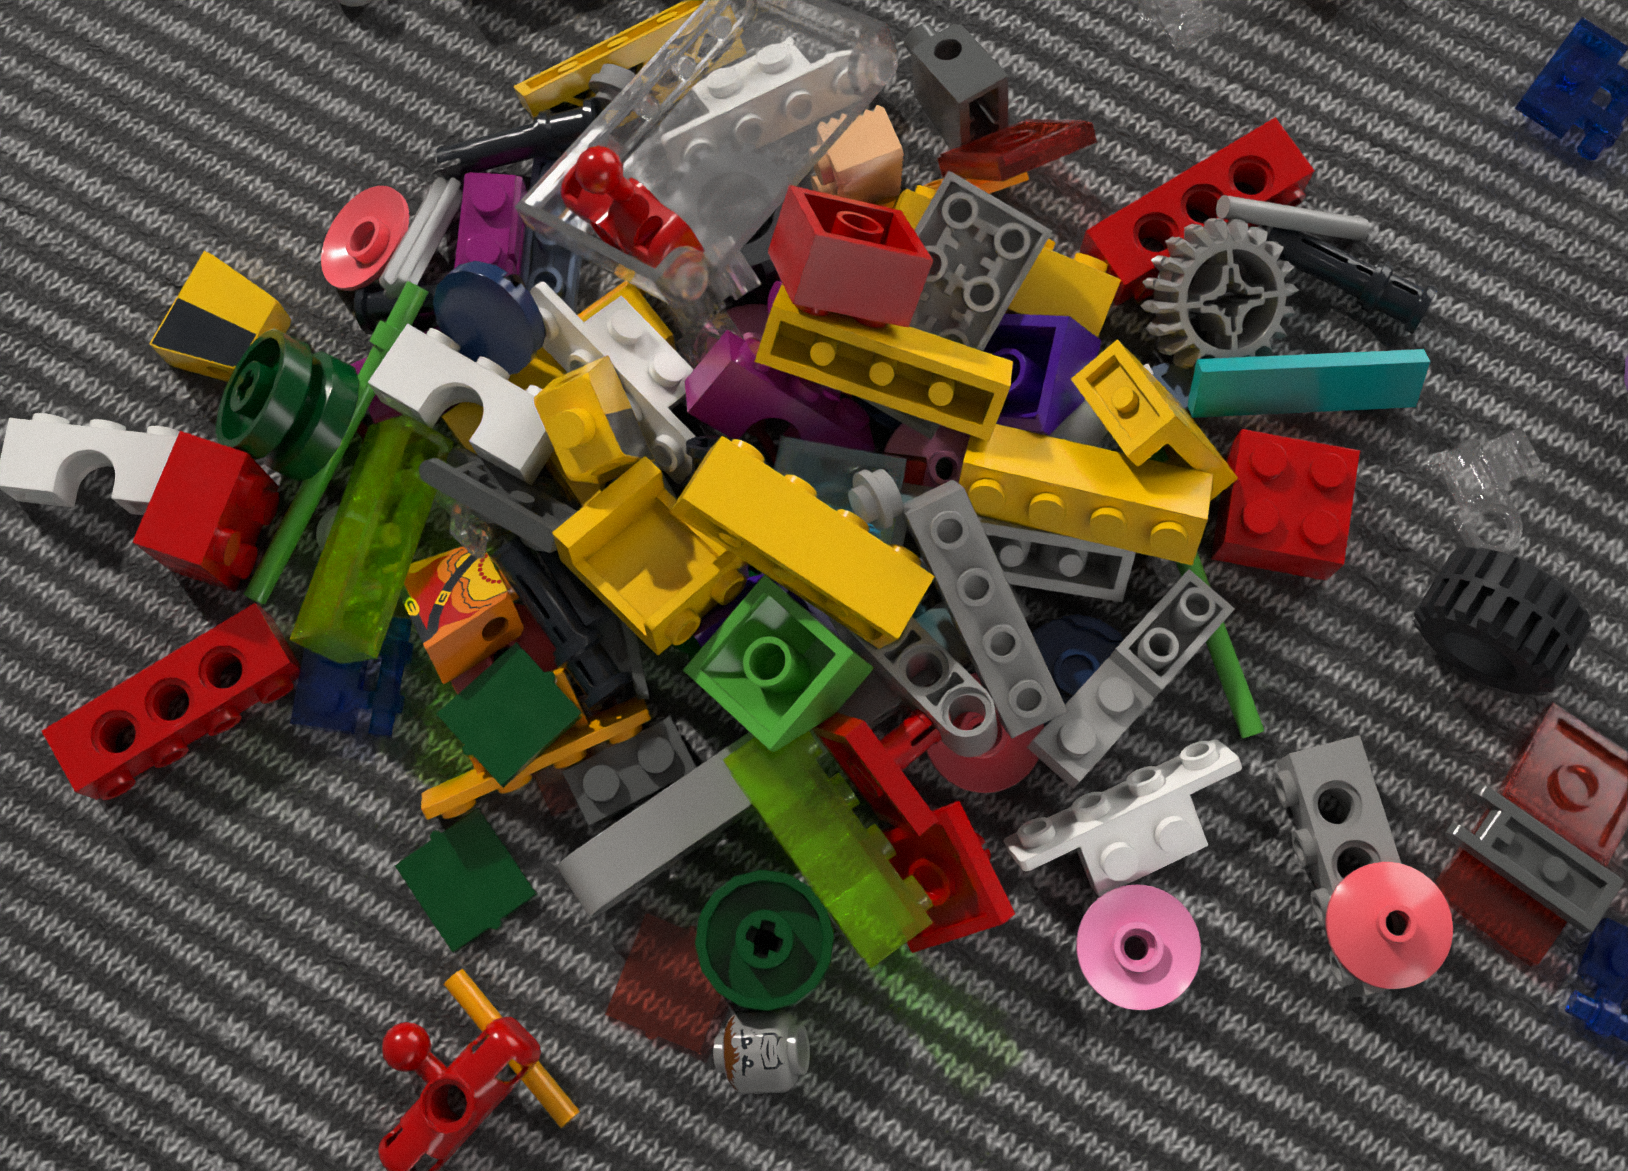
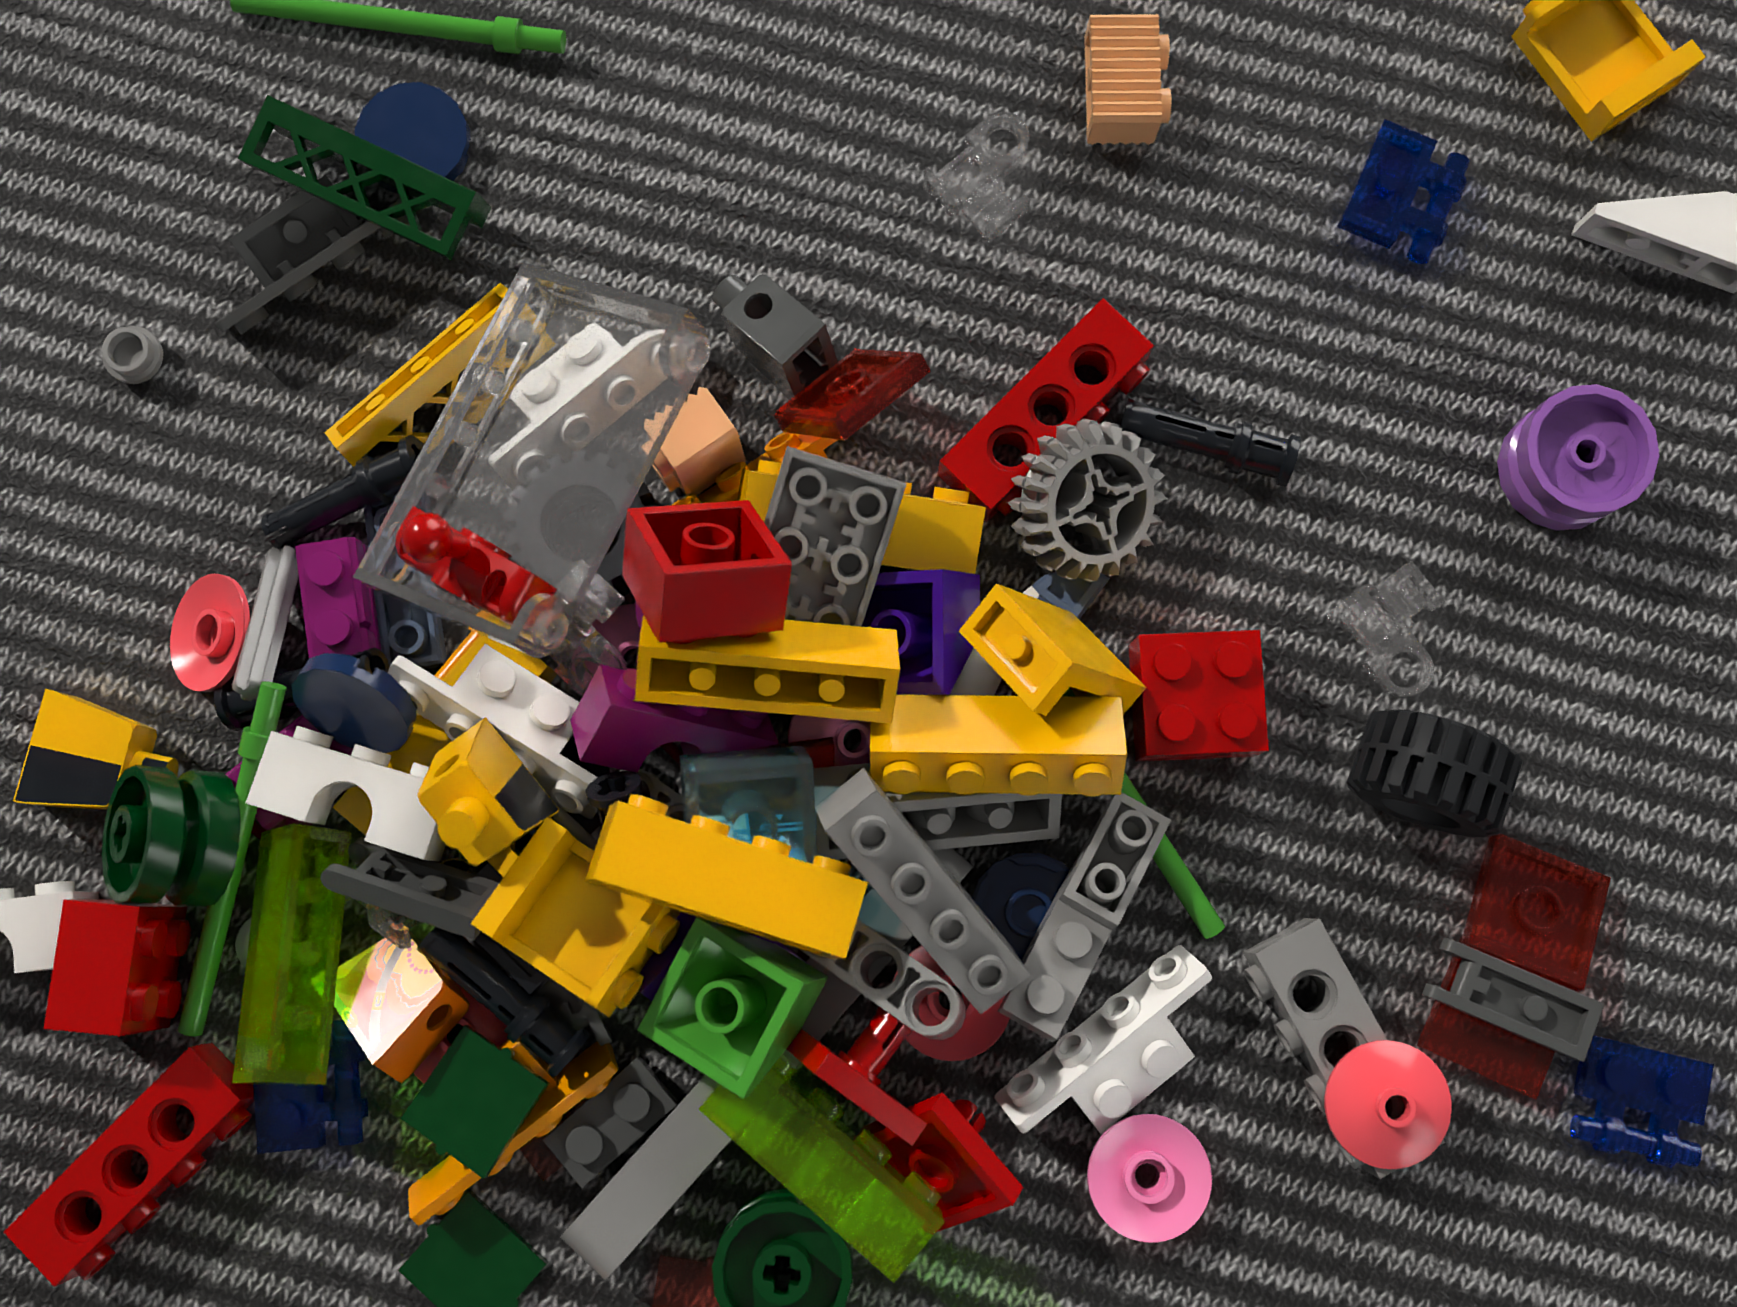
camera: 15 degrees left, 5 degrees up
(609, 82) = (422, 416): light grey plate -> none
(875, 498) = (790, 815): light grey plate -> none
(1292, 218) = (1141, 398): light grey bar -> none
(1307, 383) = (1192, 566): teal tile -> none

